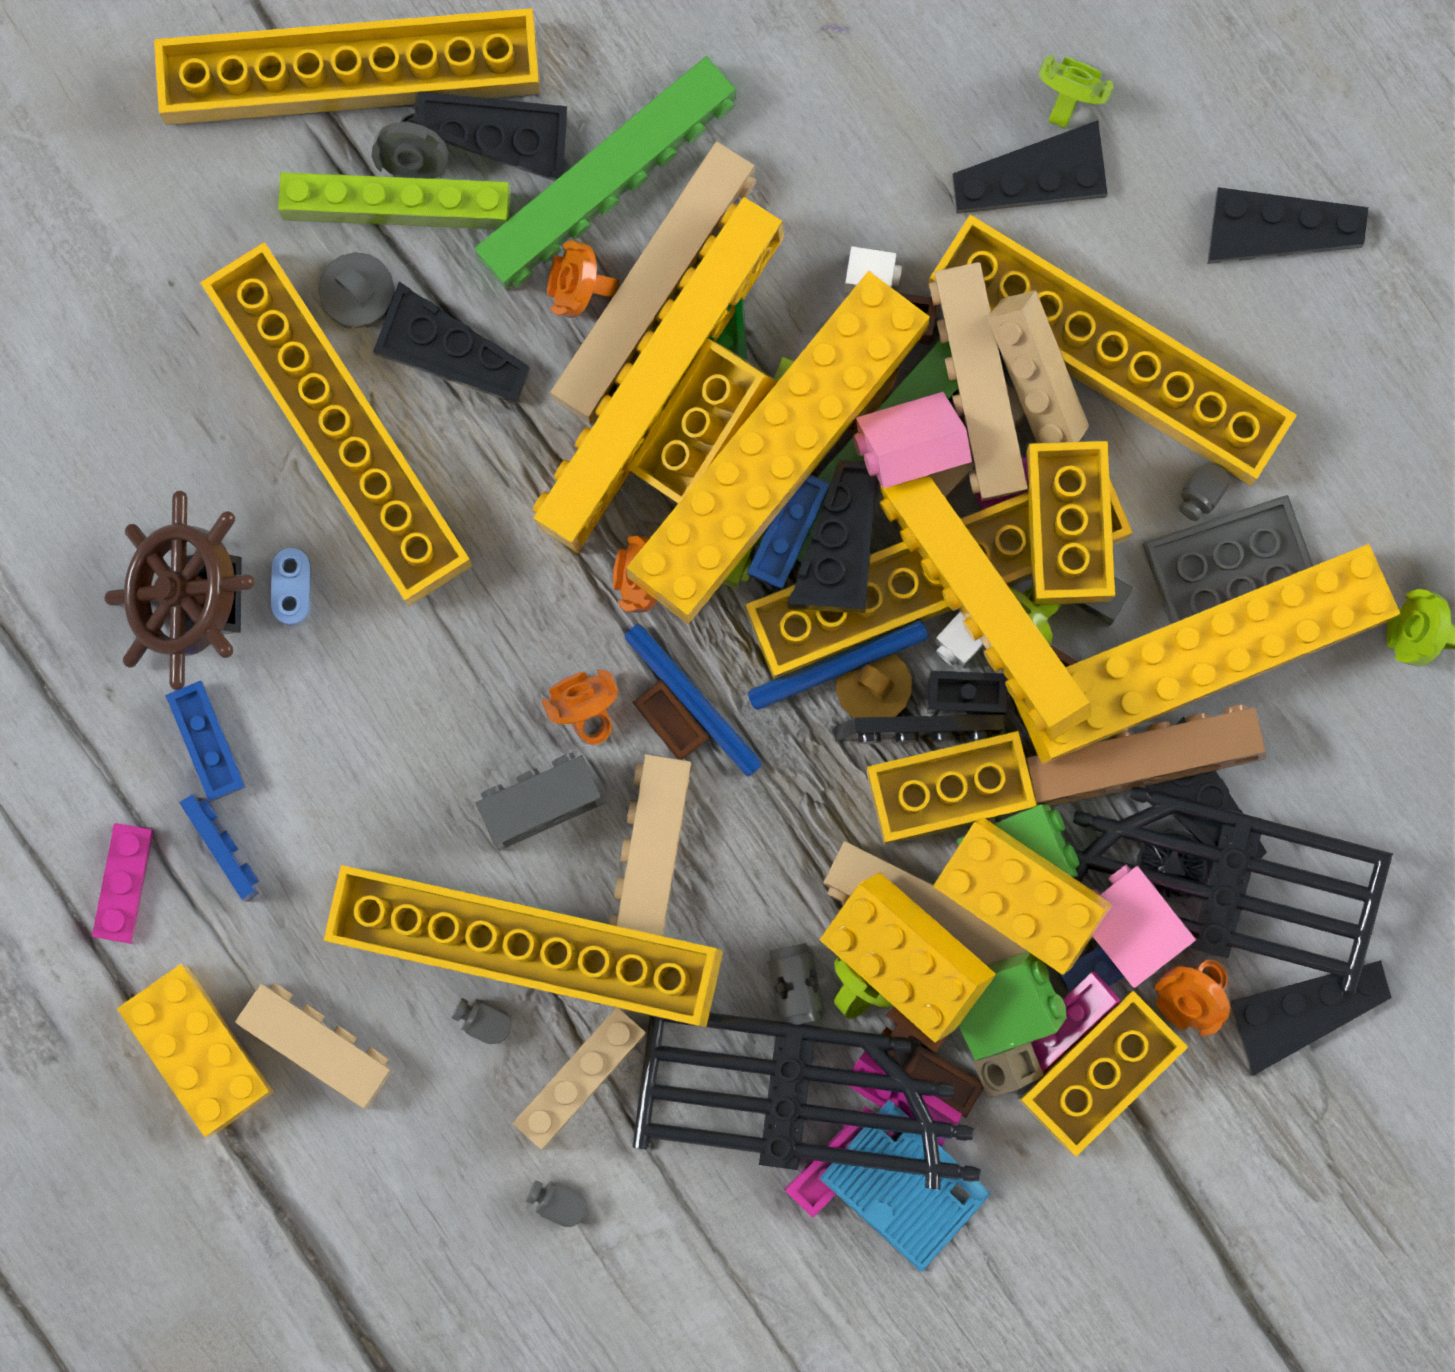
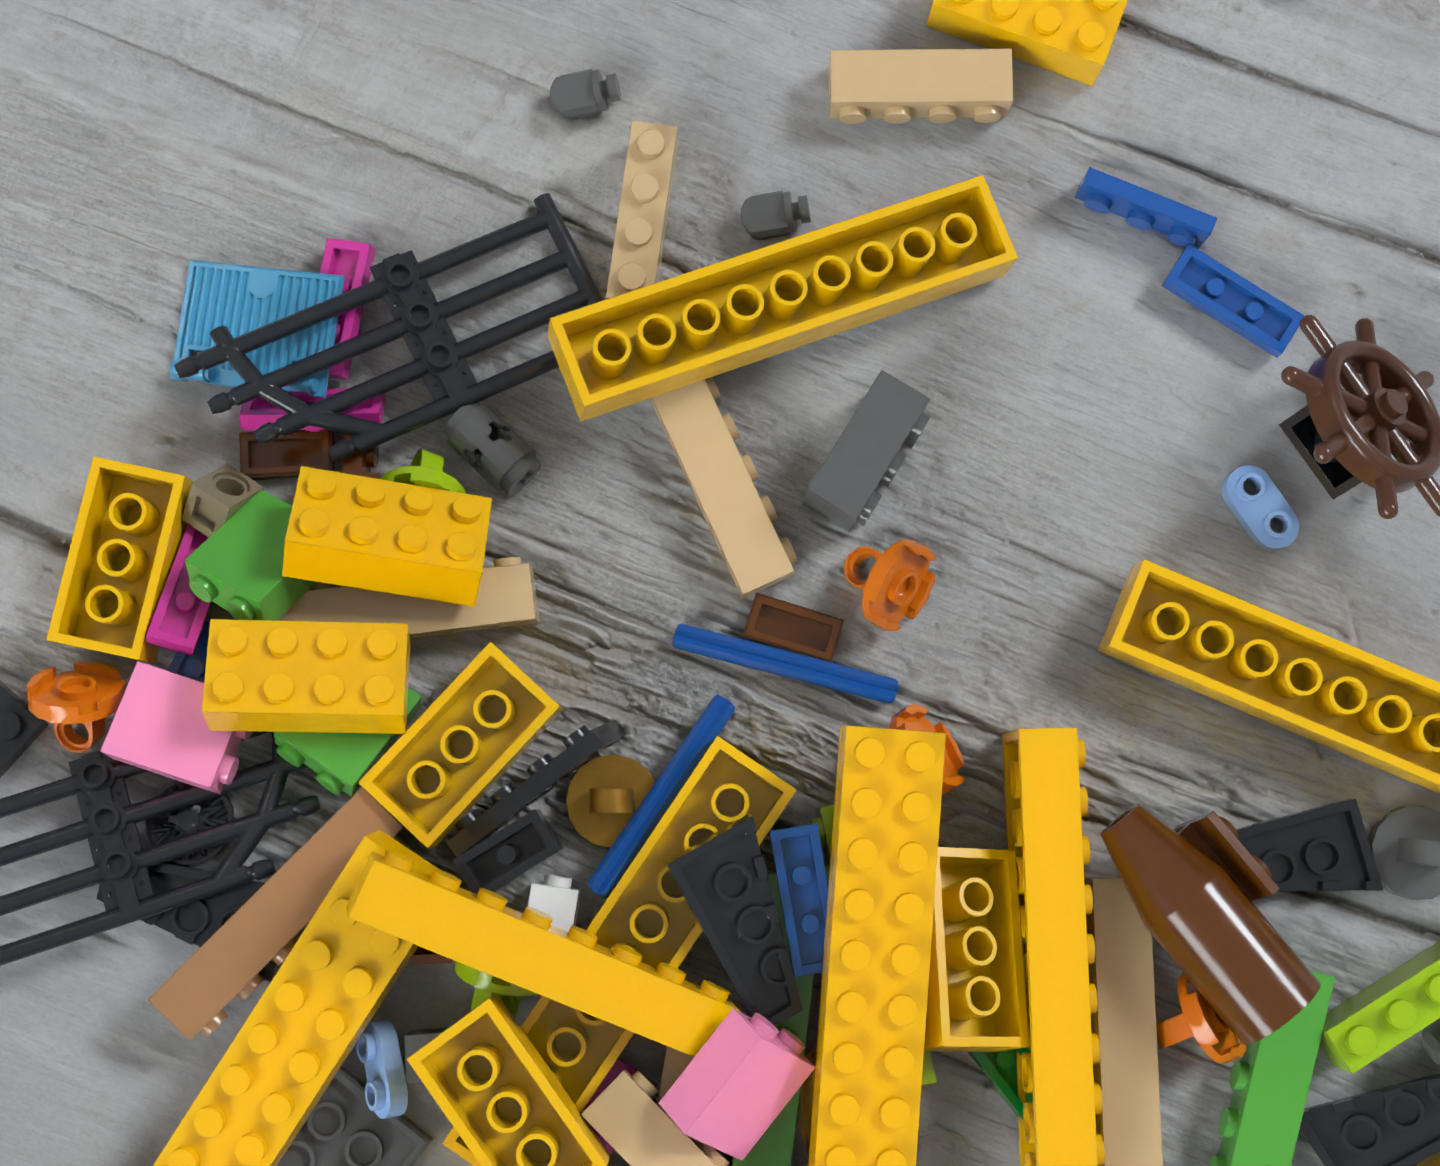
camera: 140 degrees right, 0 degrees up
(122, 883) = (1210, 118): dark pink plate -> none
(536, 350) = (1198, 903): none -> reddish brown piece
(1144, 606) = (386, 1081): none -> light blue plate

